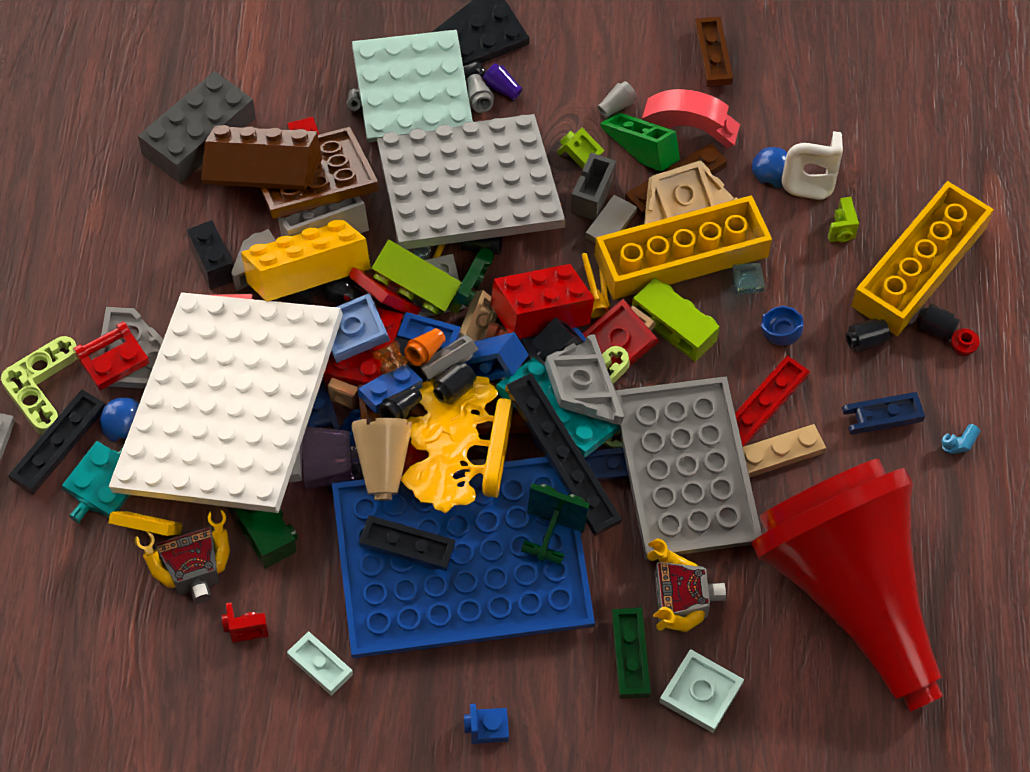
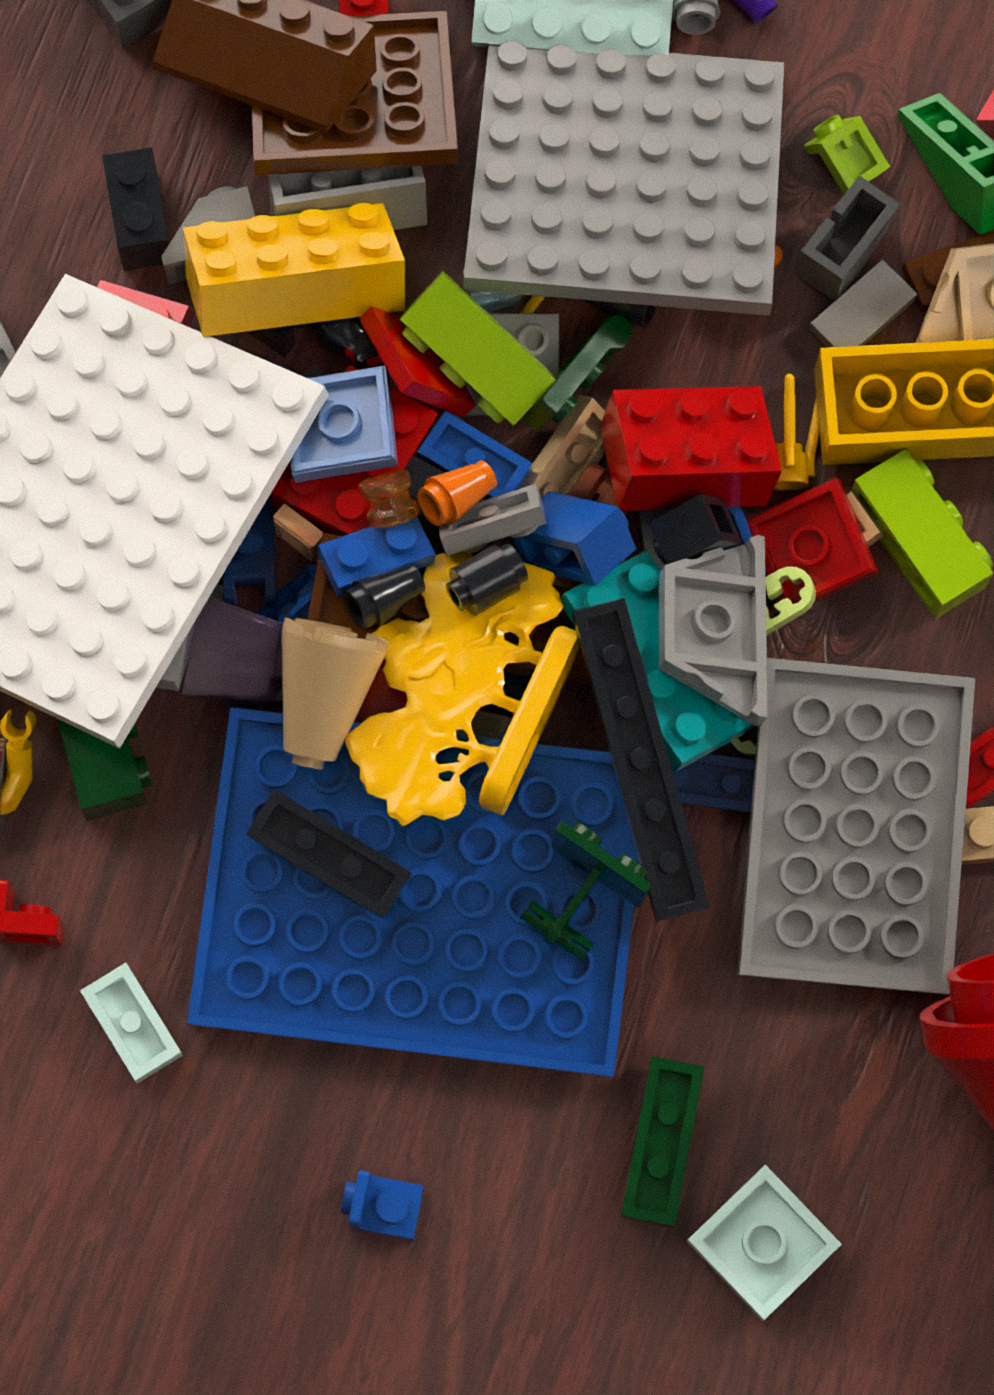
camera: 15 degrees right, 15 degrees up
(619, 98) = (943, 69): light grey cone -> none
(681, 590) = (781, 1055): torso -> none

